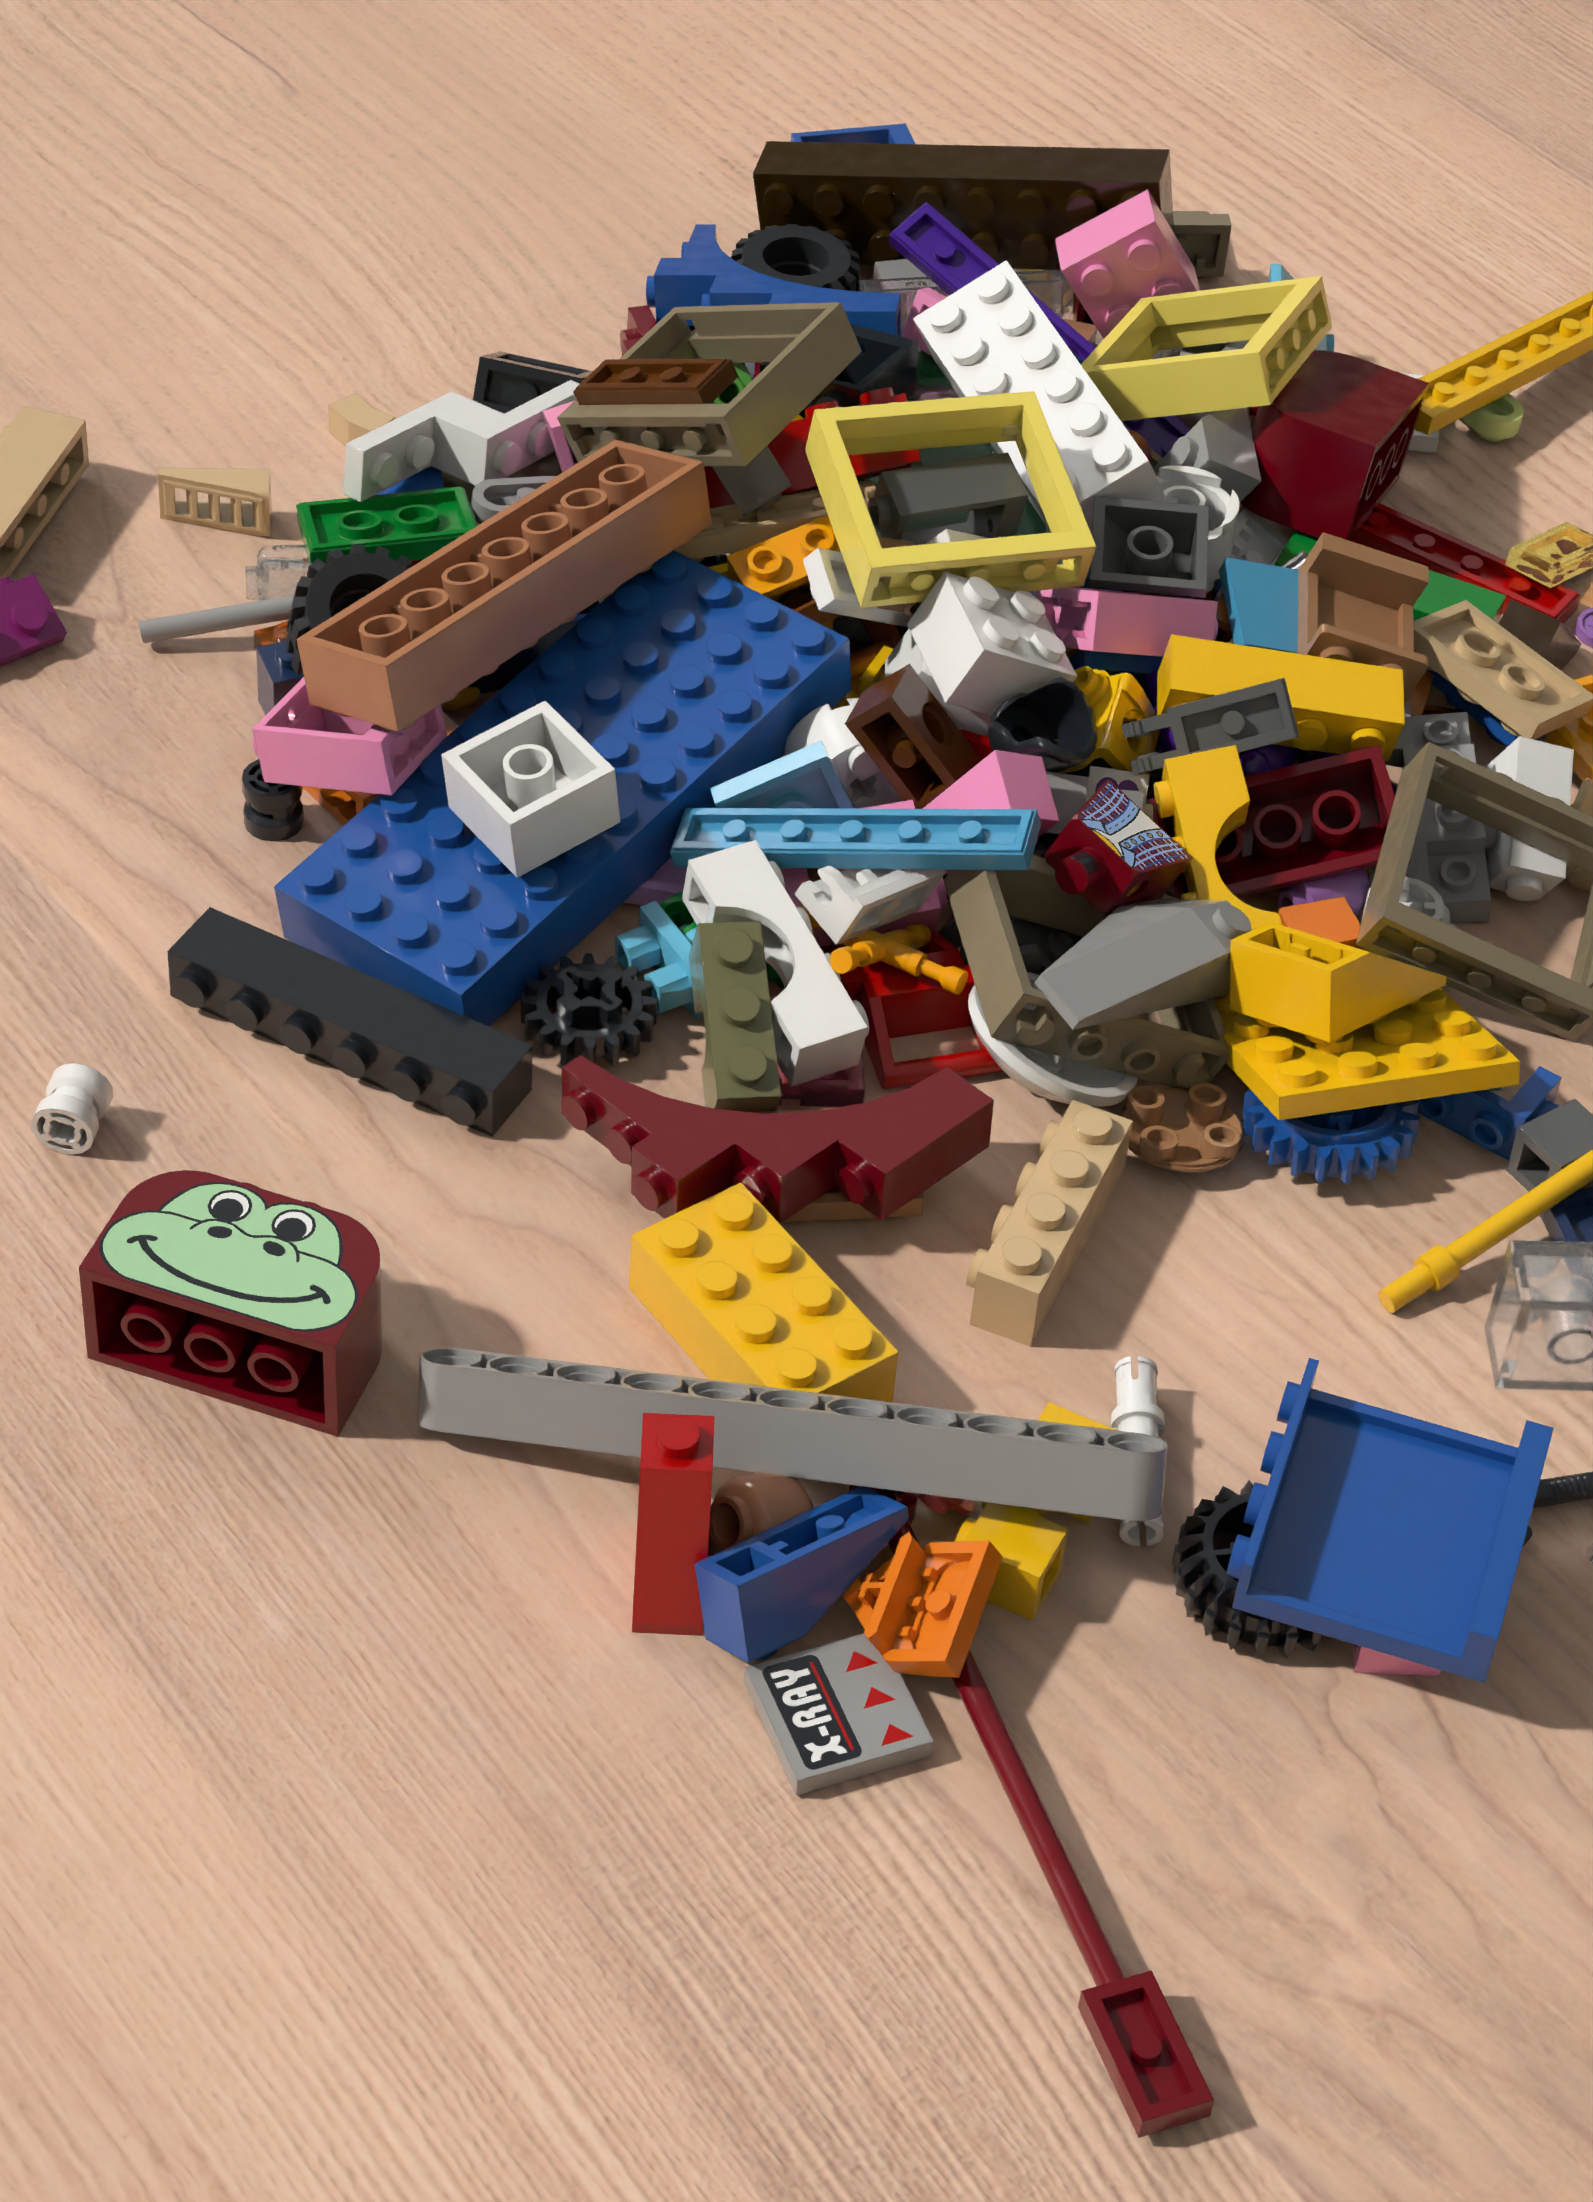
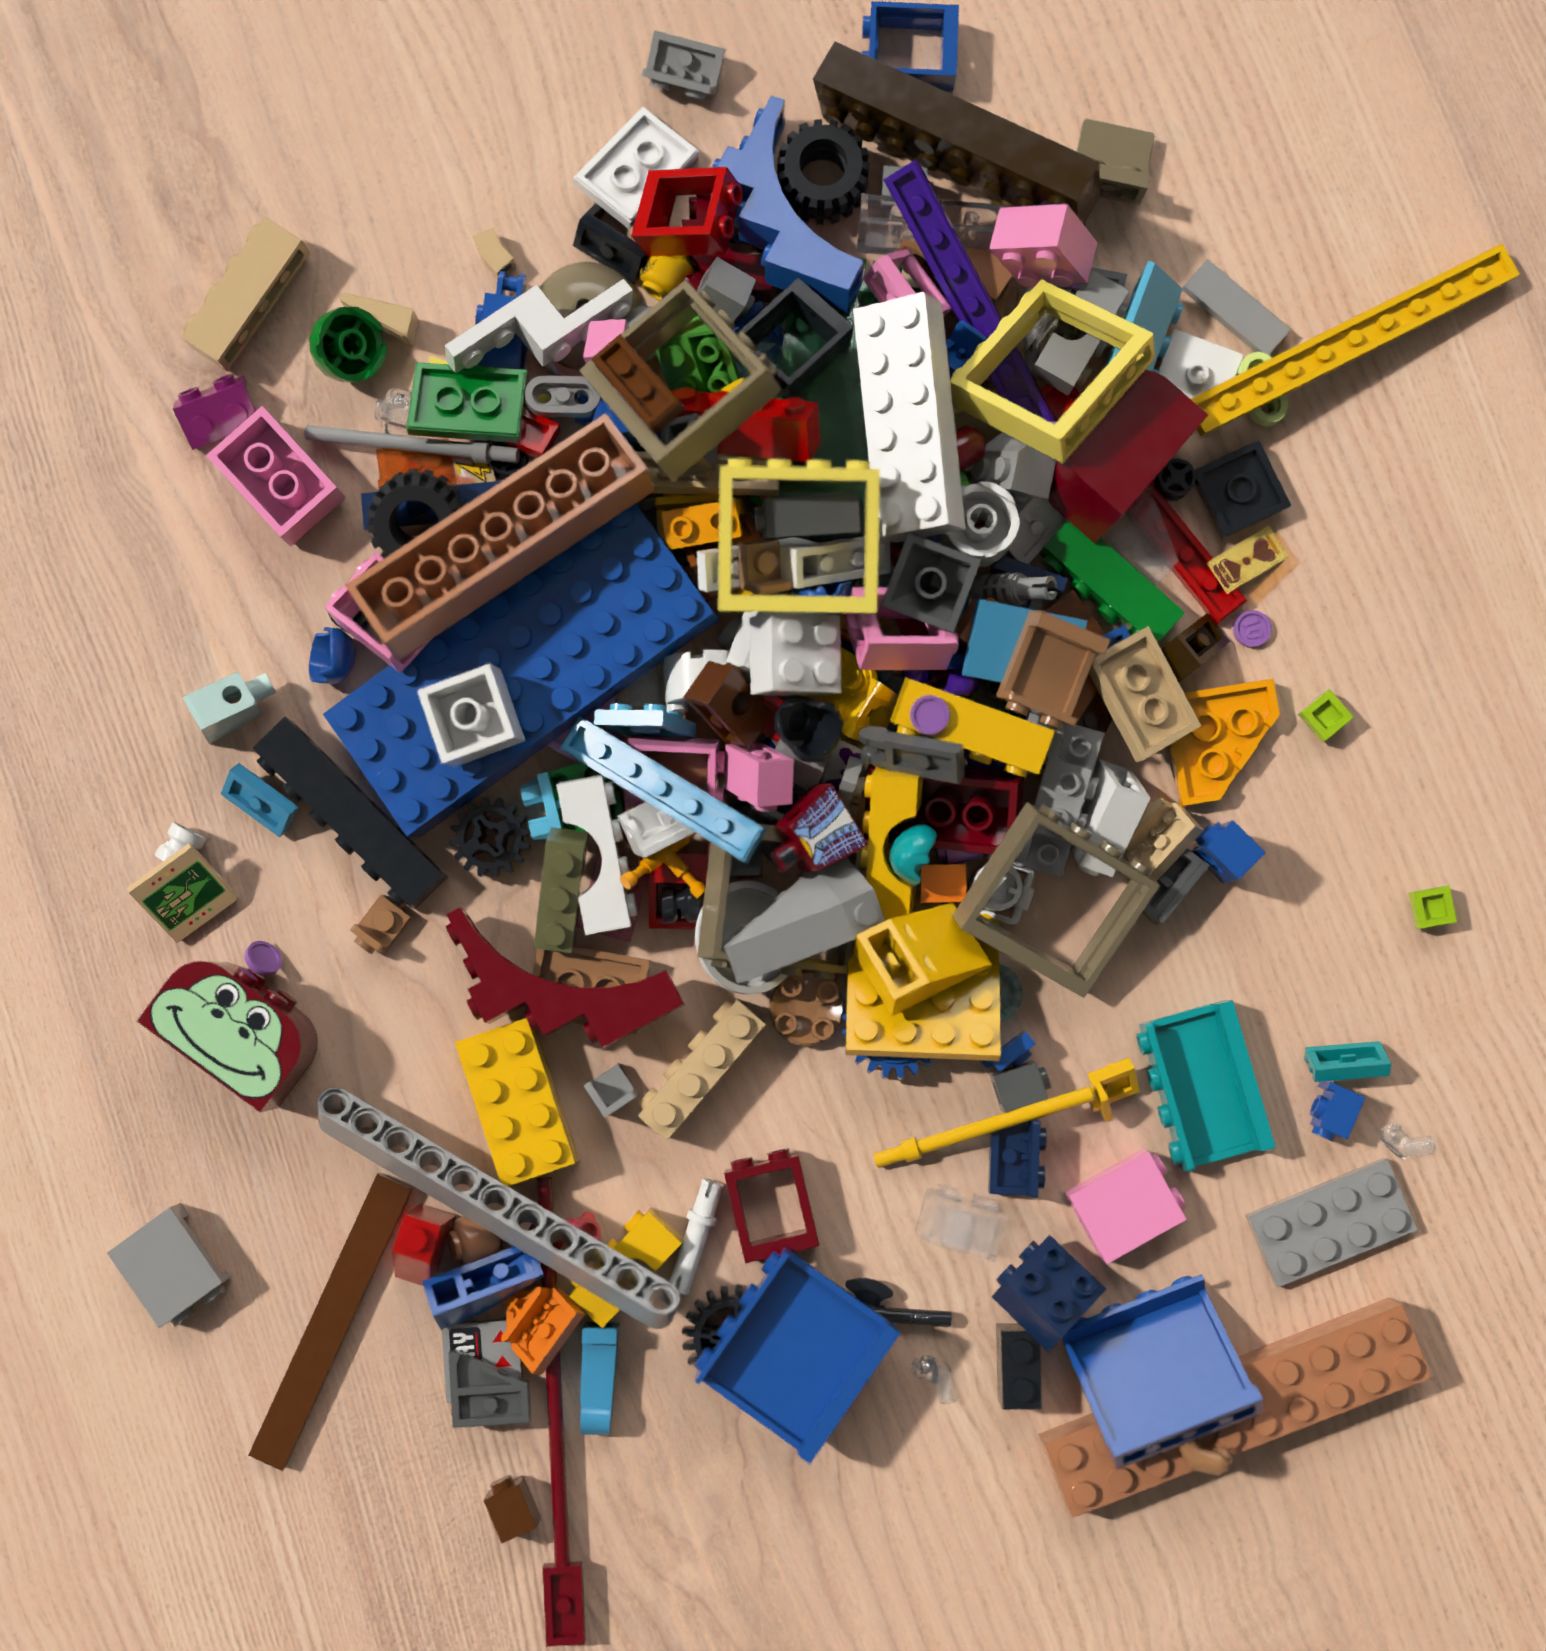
camera: 20 degrees right, 40 degrees up
(93, 1150) = (182, 892): none -> tile
(102, 921) = (213, 707): none -> light aqua torso
(114, 664) = (276, 476): none -> bright pink brick
(180, 517) = (347, 344): none -> green cylinder
(190, 1031) = (259, 800): none -> dark azure plate
(212, 1672) = (168, 1267): none -> light grey panel
(262, 849) = (331, 656): none -> blue hair
(442, 1155) = (380, 926): none -> medium nougat bracket
(532, 1727) = (330, 1322): none -> reddish brown tile
(534, 320) = (620, 168): none -> white tile
(563, 228) = (684, 64): none -> light grey bracket
(625, 302) = (657, 204): none -> red window
(871, 1729) = (485, 1393): none -> dark grey wing
(910, 1288) = (611, 1090): none -> light grey panel
(928, 1027) = (679, 905): none -> black wheel
(984, 1913) = (511, 1507): none -> reddish brown brick
(1056, 1676) = (598, 1377): none -> dark azure leg
(1217, 667) = (929, 714): none -> medium lavender piece
(1230, 1436) = (794, 1240): none -> dark red window
(1254, 866) = (912, 851): none -> teal hair
(1393, 341) = (1235, 308): none -> light grey tile
(1410, 537) = (1144, 539): none -> clear wing
(1415, 492) = (1179, 473): none -> black wheel
(1506, 493) = (1240, 489): none -> black plate

